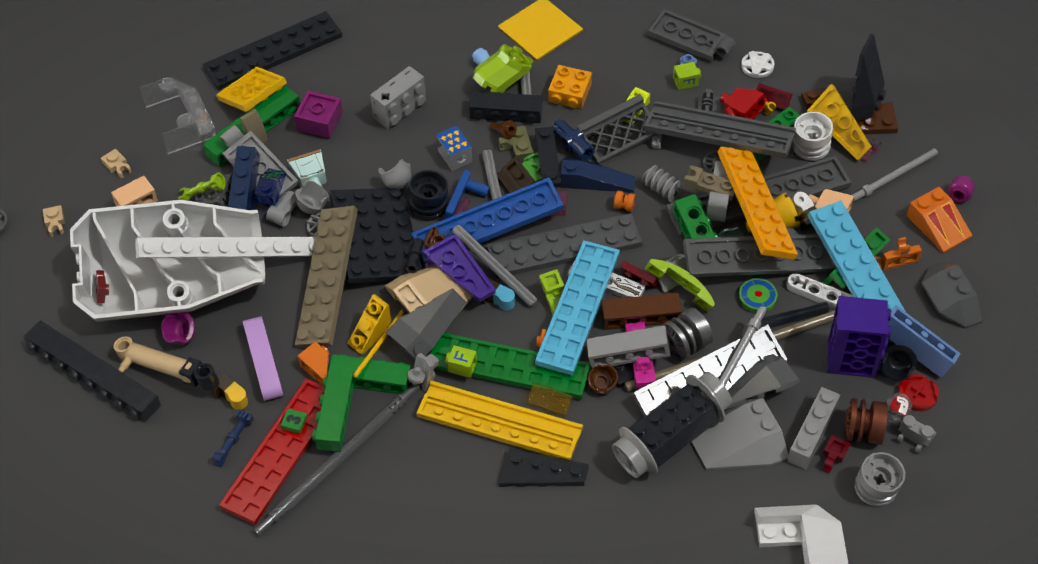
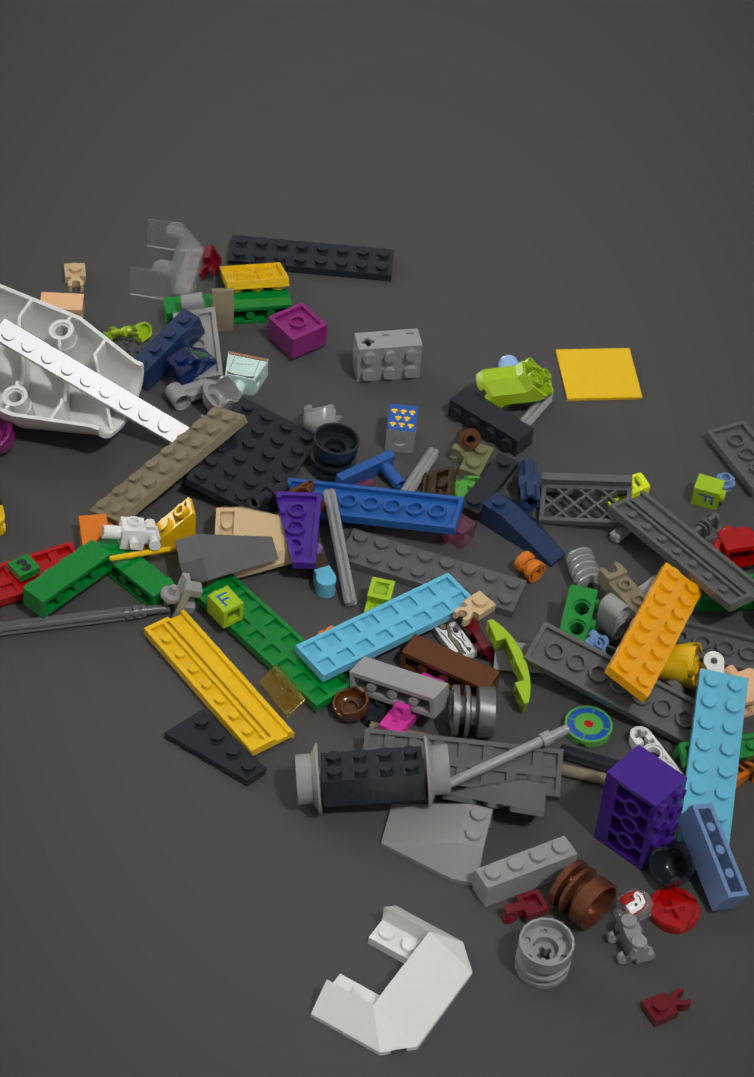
camera: 30 degrees right, 10 degrees down
(207, 94) = (211, 261): none -> dark red plate
(262, 358) = (48, 504): lavender beam -> none
(352, 345) = (133, 533): none -> white piece
(570, 87) = (574, 438): light orange brick -> none
(625, 256) = (474, 606): none -> tan plate
(722, 231) = (597, 640): none -> medium blue plate
(970, 465) = (662, 1008): none -> dark red plate

